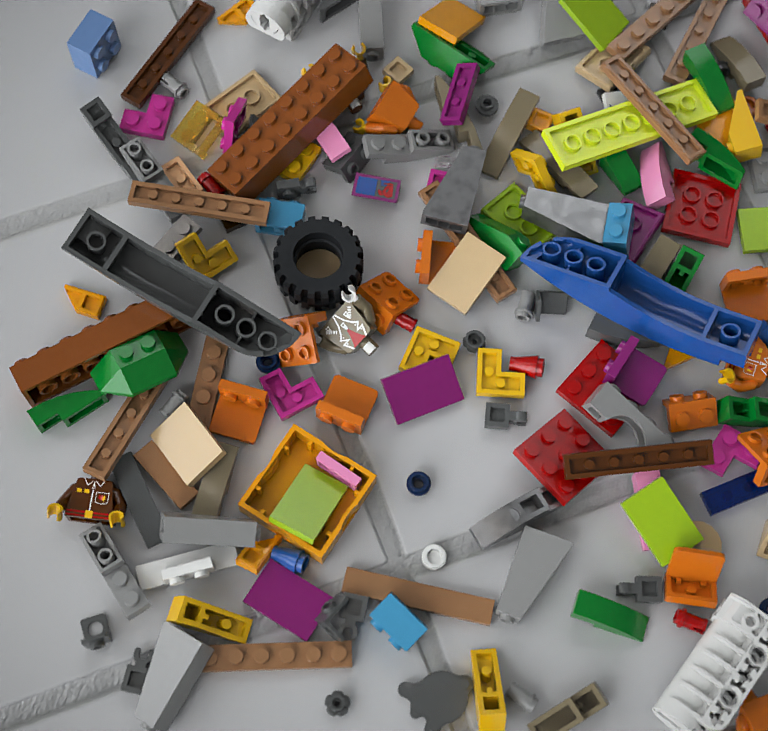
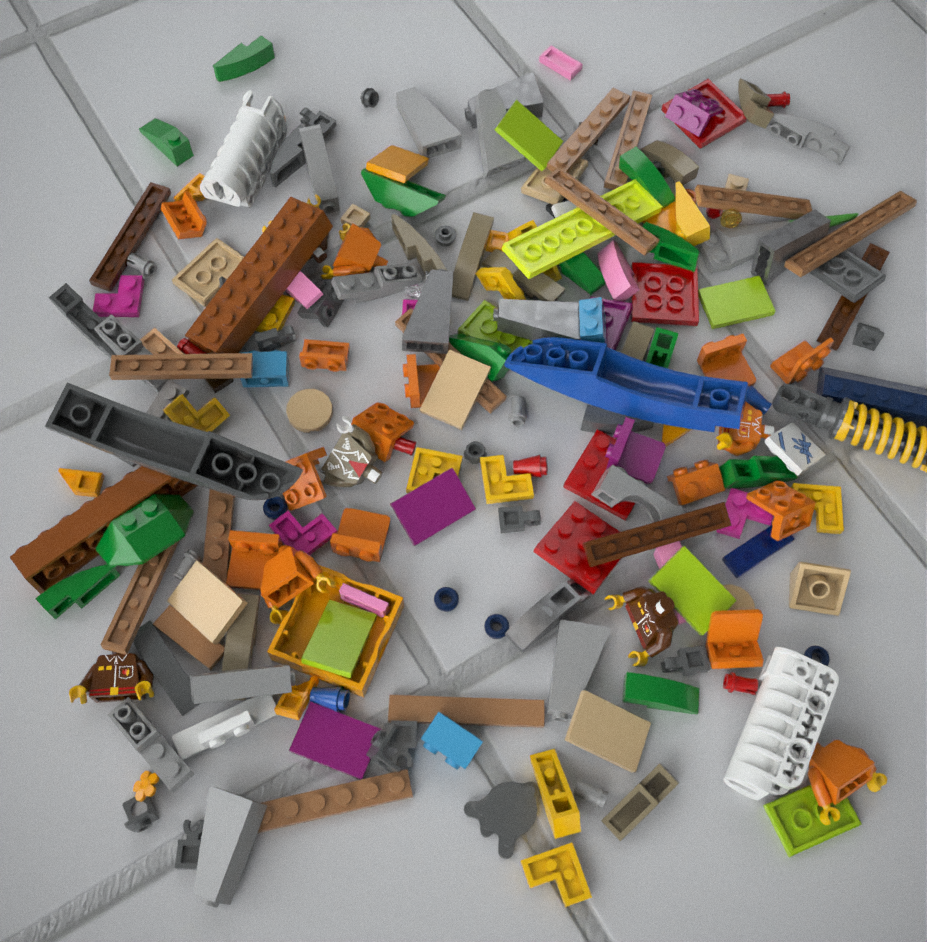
camera: 10 degrees left, 5 degrees down
(94, 43) = (55, 237): medium blue brick -> none
(103, 609) = (145, 786): none -> light orange plant
(193, 127) = (166, 297): clear yellow plate -> none
(209, 619) = (256, 776): yellow slope -> none
(225, 42) = (185, 217): none -> orange bracket
(232, 123) = (203, 287): dark pink plate -> none
(268, 435) = (287, 577): none -> orange torso
(311, 236) = (301, 378): black tyre -> none
(334, 710) = (409, 843): dark grey plate -> none
(347, 211) = (324, 355): none -> orange bracket
(376, 187) = (354, 326): slope -> none
(433, 557) = (475, 669): white tile -> none
(460, 94) = (417, 226): magenta plate -> none
(462, 512) = (496, 619): none -> dark blue plate
(550, 303) = (541, 404): dark grey bracket -> none
(550, 642) = (608, 731): none -> tan tile
(615, 541) = (652, 619): none -> reddish brown torso

